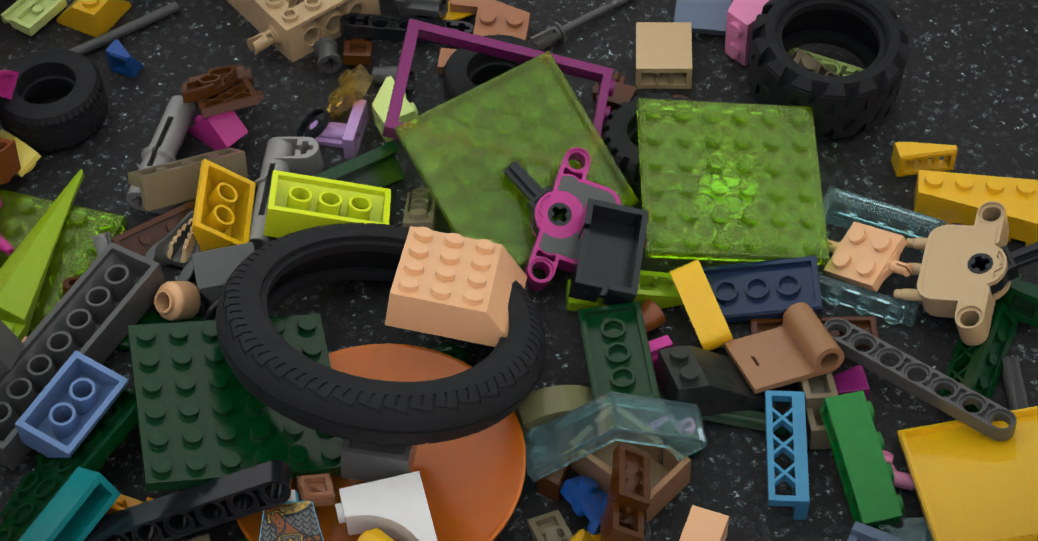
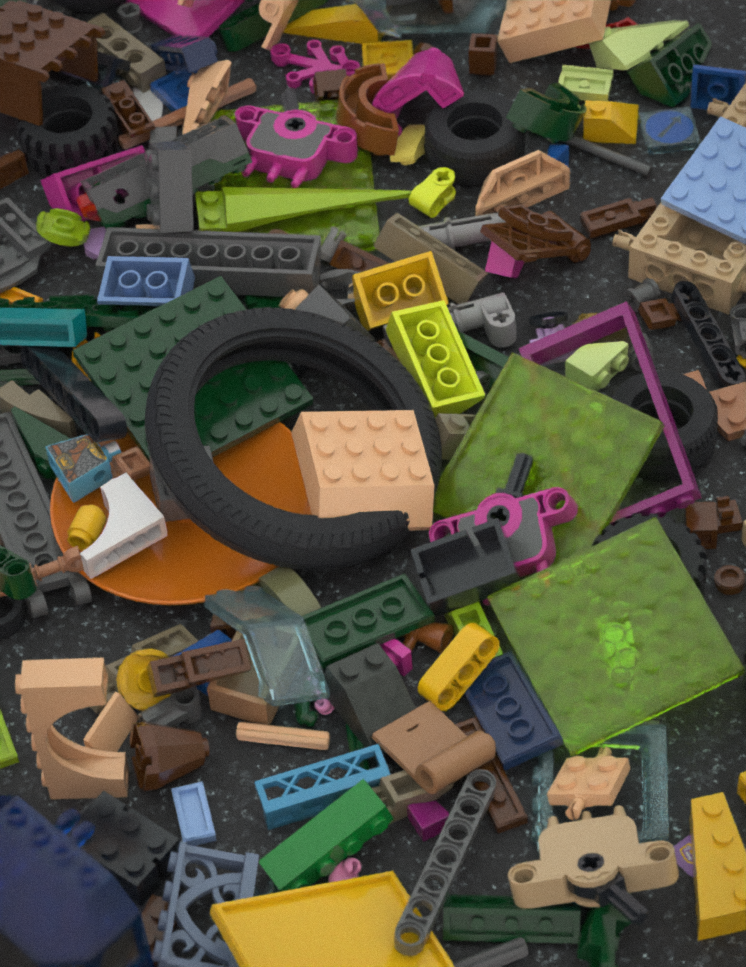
camera: 70 degrees right, 0 degrees up
(73, 30) = (549, 115): none -> dark green brick
(93, 154) = (434, 192): none -> neon yellow piece
(134, 94) = (523, 182): none -> light nougat wedge
(219, 42) = (616, 216): none -> reddish brown hinge
(705, 472) = (283, 735): none -> light nougat axle

